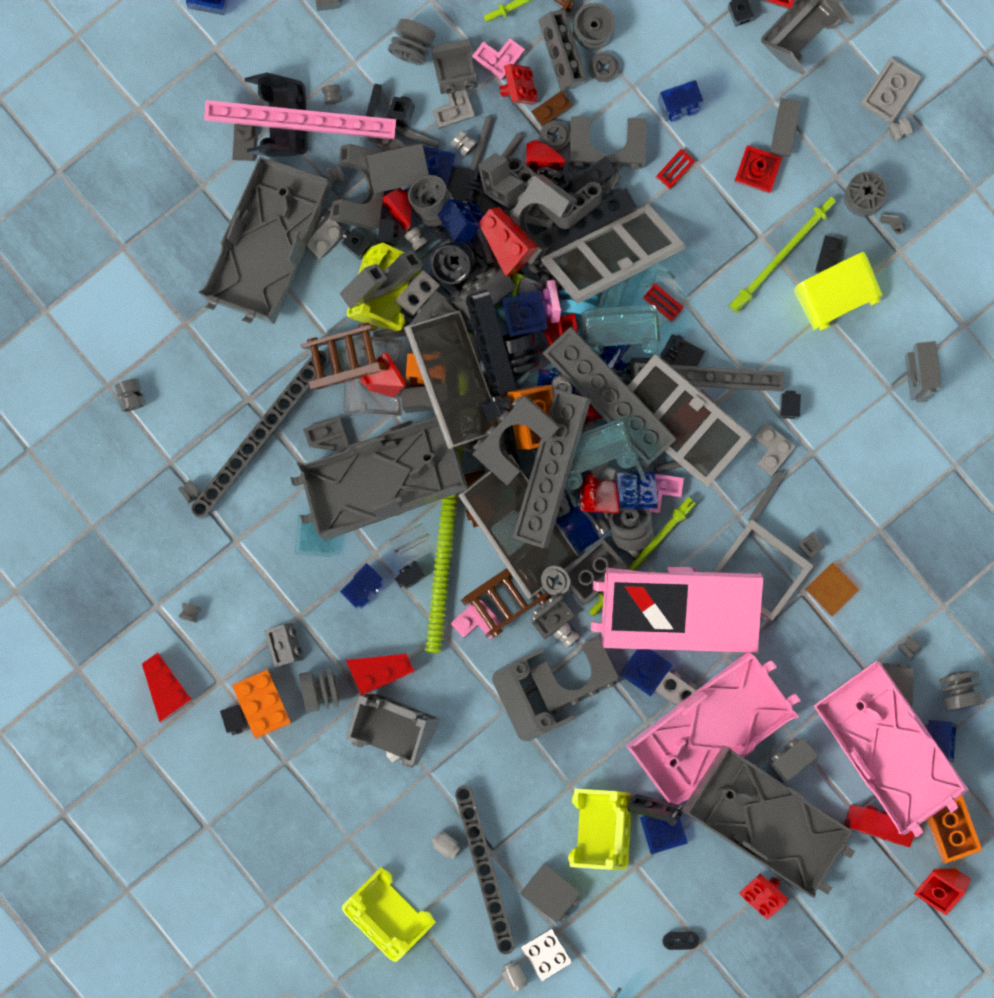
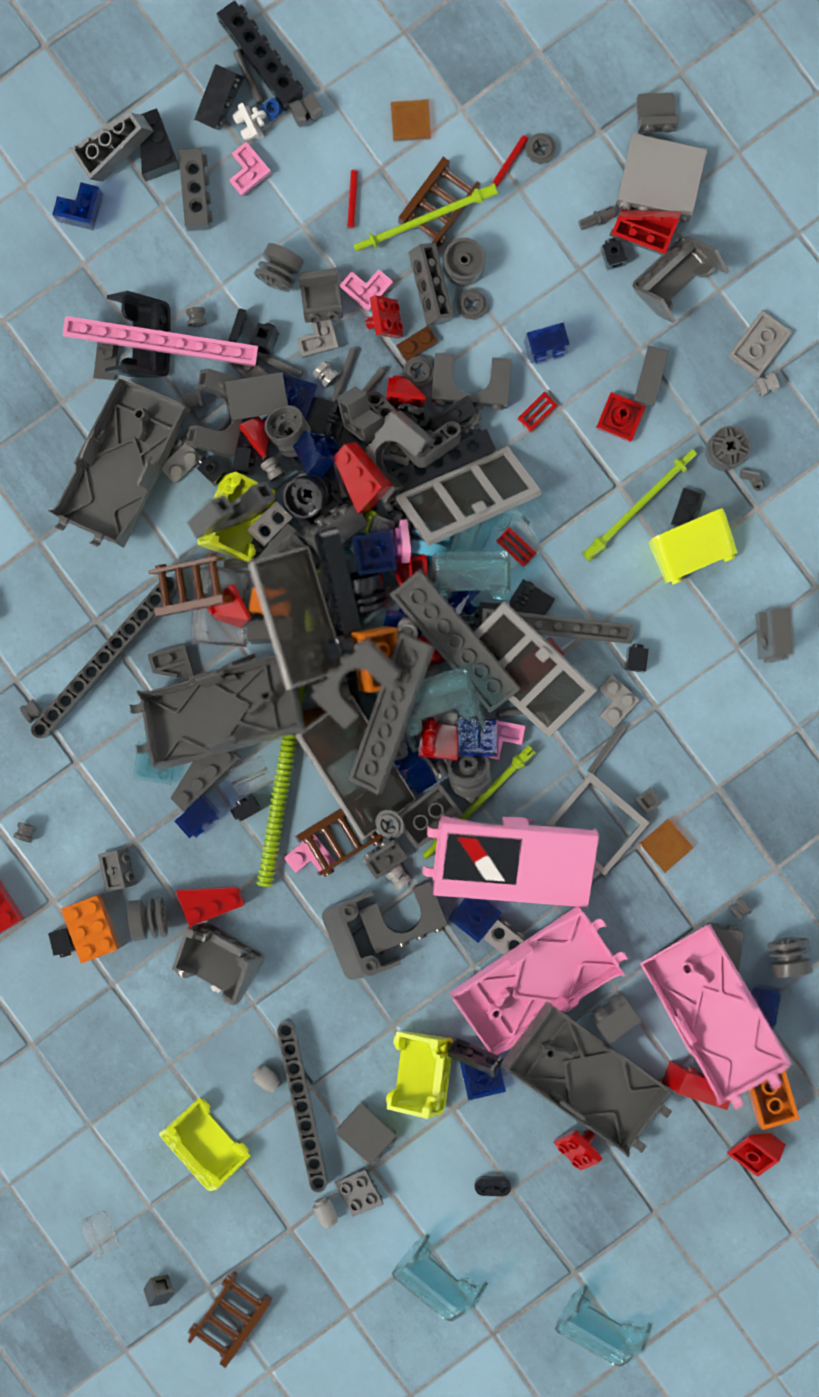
camera: 10 degrees right, 5 degrees up
(365, 545) = (201, 777): none -> dark grey wedge

